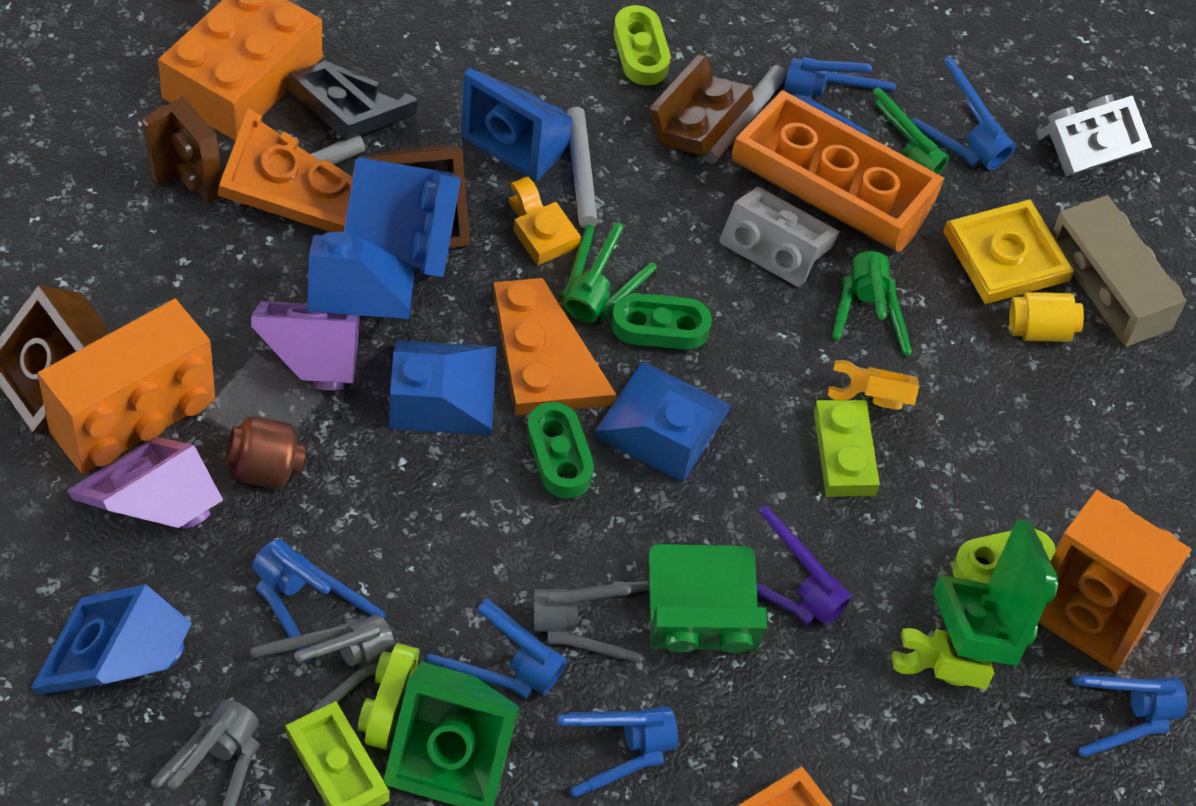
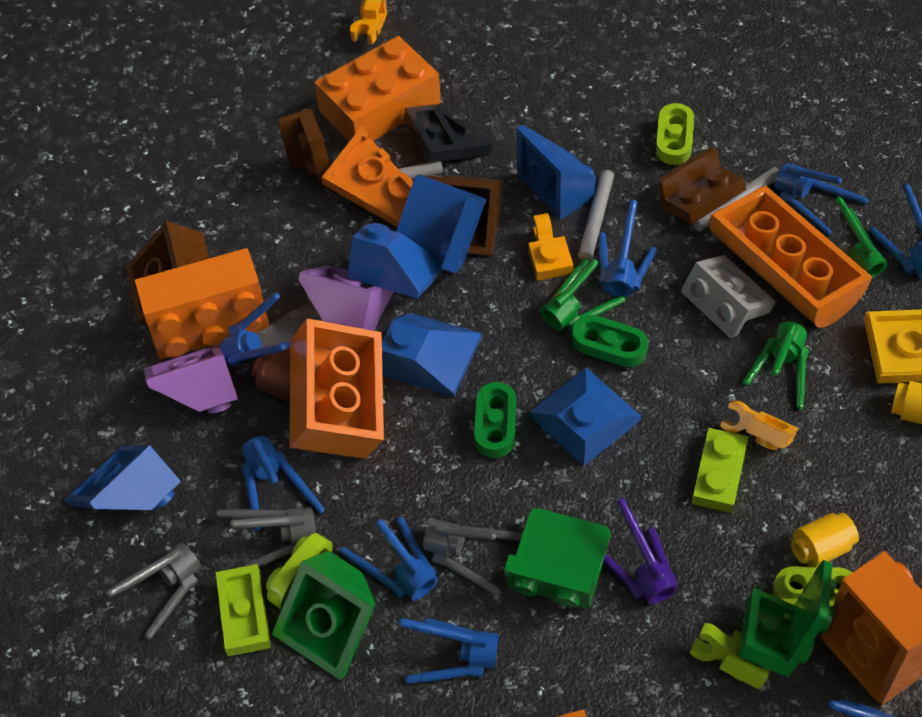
camera: 30 degrees right, 0 degrees up
(205, 427) = (245, 345): none -> blue plant
(355, 456) = (336, 389): none -> orange brick
(544, 351) = (515, 344): orange wing -> none
(643, 237) = (620, 276): none -> blue plant
(995, 499) = (824, 539): none -> yellow brick

